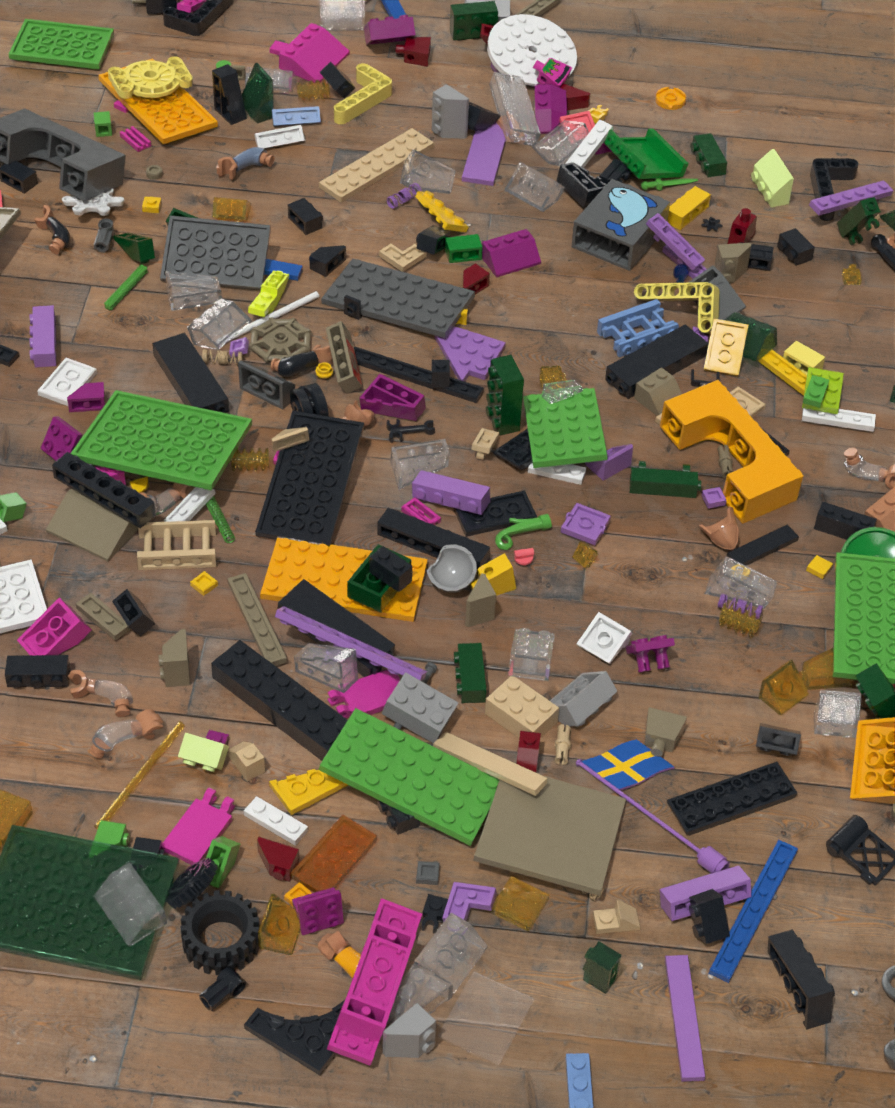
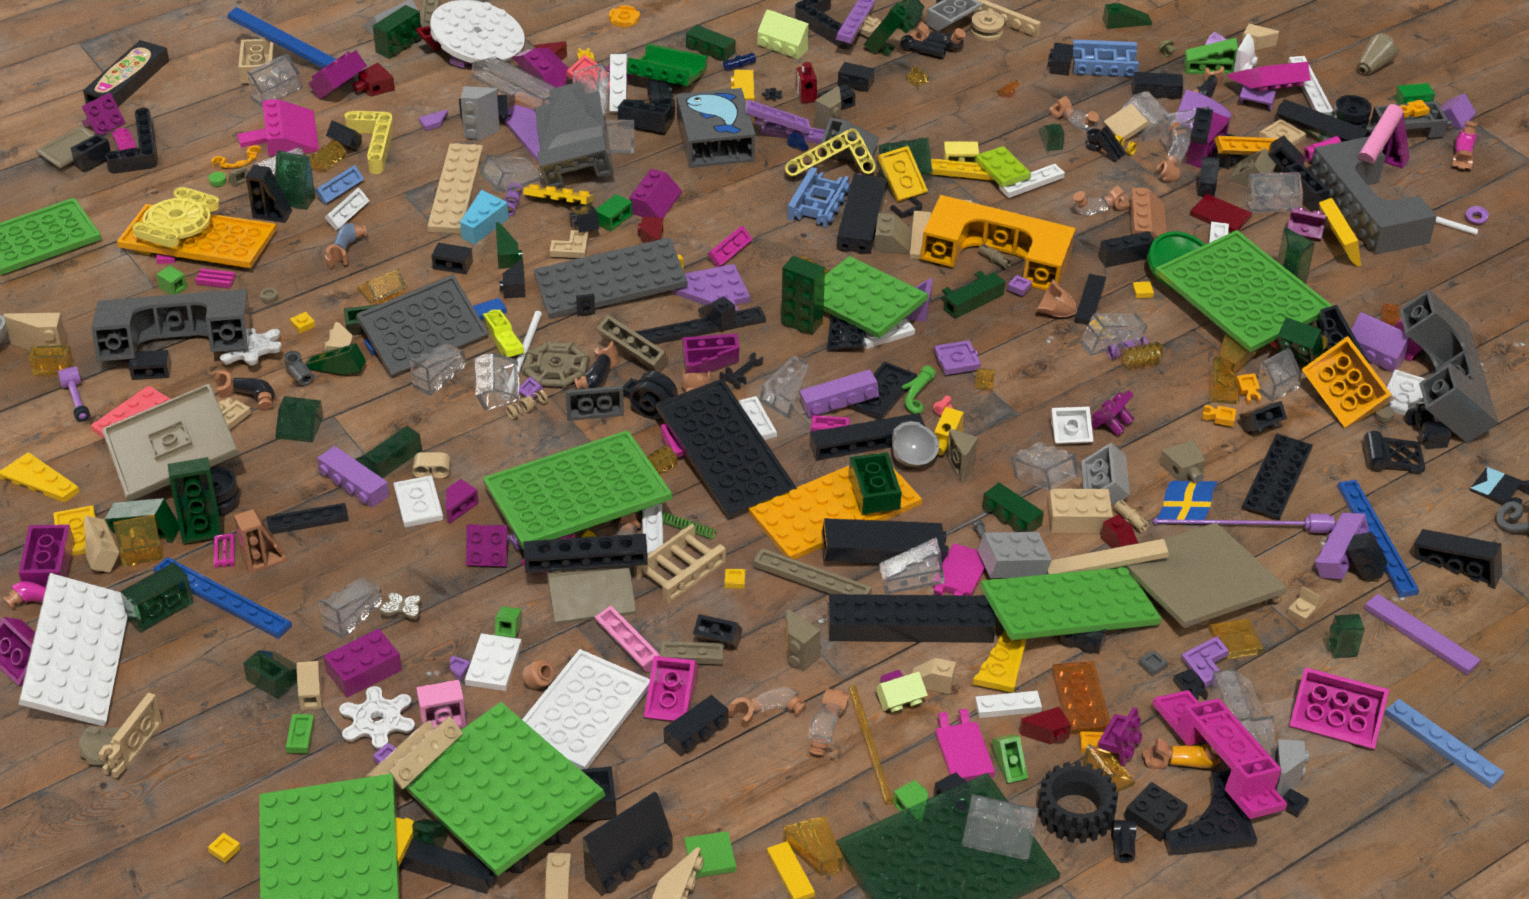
camera: 40 degrees left, 5 degrees down
(22, 241) = (233, 411): none -> tan plate
(60, 272) = (298, 419): none -> clear green slope
(73, 573) = (627, 637): none -> bright pink brick
(88, 335) = (391, 451): none -> clear green slope
(104, 360) = (432, 464): none -> tan beam
(126, 286) = (369, 399): bright green axle -> none
(156, 231) = (338, 337): none -> tan slope
(189, 374) = (518, 432): black brick -> none
(191, 883) = (1022, 783): black gear -> none
(241, 56) = (251, 153): none -> light orange piece
(274, 986) = (1156, 810): none -> black brick
(290, 438) = (679, 424): tan slope -> none
(324, 370) = (621, 366): yellow plate -> none
(339, 639) = (891, 545): medium lavender plate -> none
(351, 230) = (507, 248): none -> dark green slope
(363, 197) = (482, 217): none -> medium azure wedge
(373, 474) = (759, 417): none -> white tile
(390, 569) = (890, 465): black brick -> none
(392, 1067) = (1295, 802): none -> black plate
(421, 104) = (433, 120): none -> medium lavender tile
(484, 442) = (815, 344): tan plate -> none
(496, 169) = (572, 134): none -> dark grey panel
(518, 326) = (729, 246): none -> dark pink plate
(522, 1023) = (1339, 708): none -> dark pink slope
(552, 72) = (517, 40): dark pink torso -> none
(560, 390) = (833, 270): clear slope -> none
(658, 184) = (699, 84): bright green sword -> none
(715, 182) = (739, 61): none -> clear blue pin
(747, 715) = (1221, 415): none -> light orange plate
(803, 706) = (1249, 385): none -> light orange plate
(816, 391) = (1005, 167): bright green plate -> none

